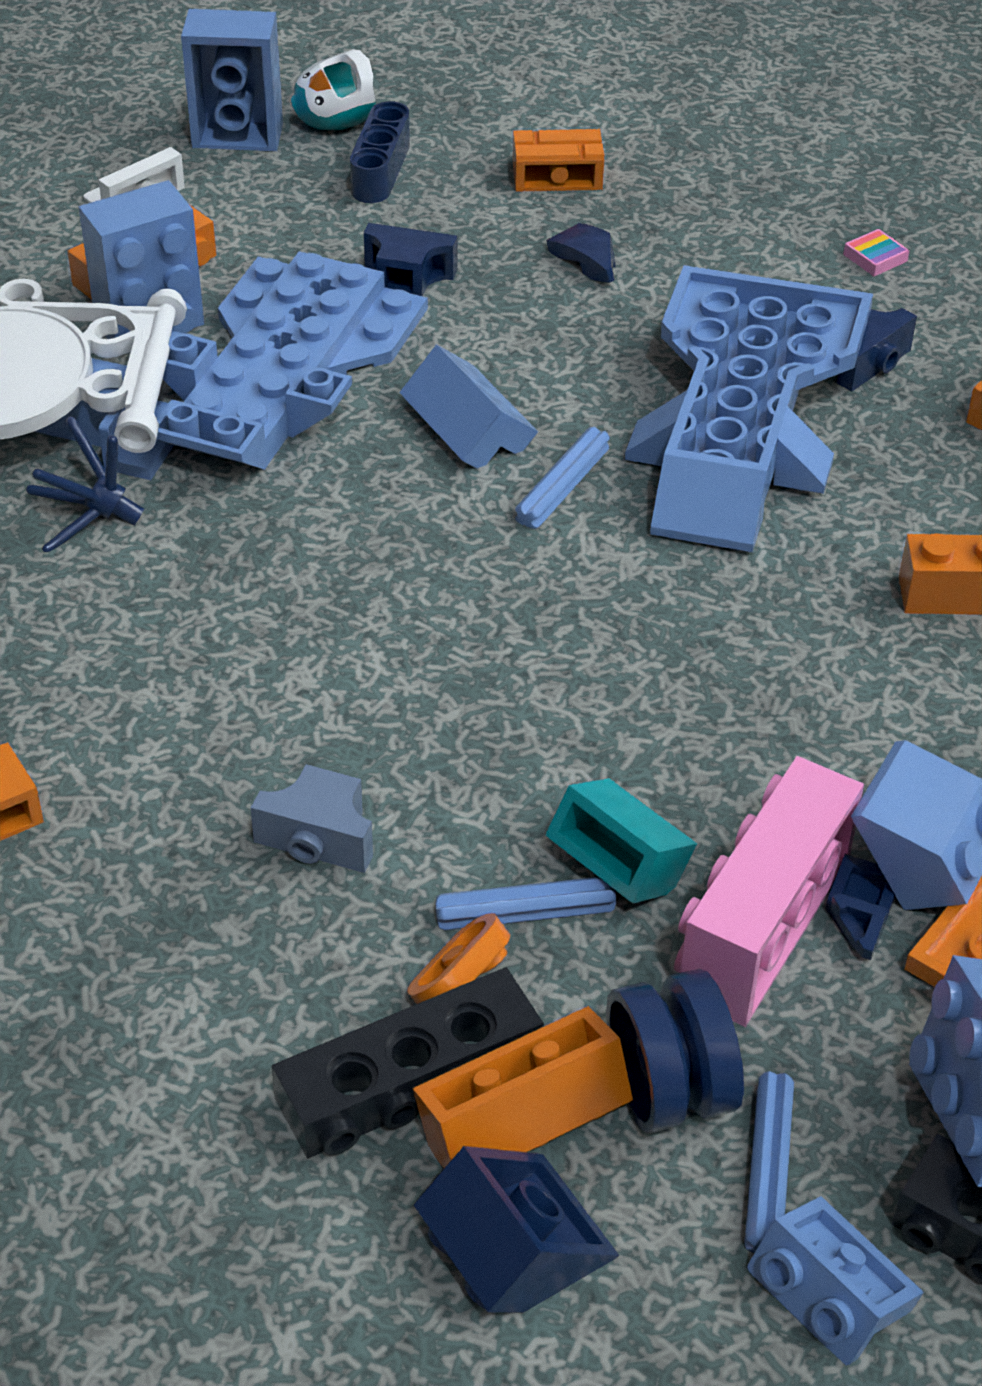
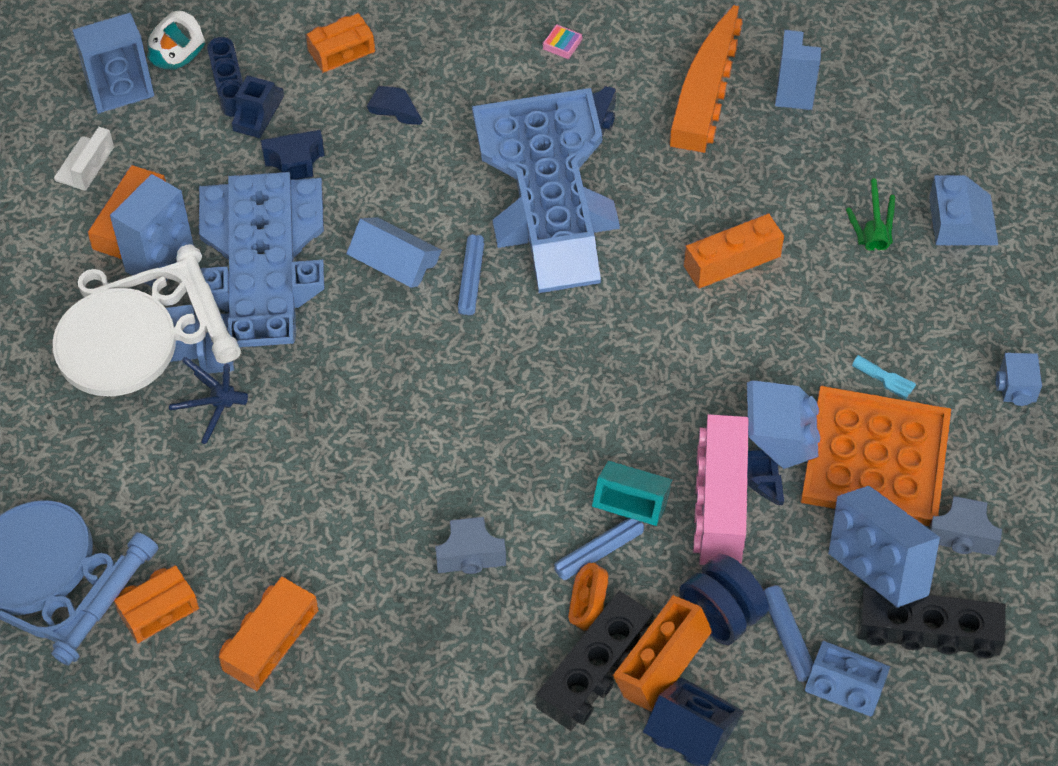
camera: 25 degrees left, 10 degrees up
(395, 188) = (255, 106): none -> dark blue brick

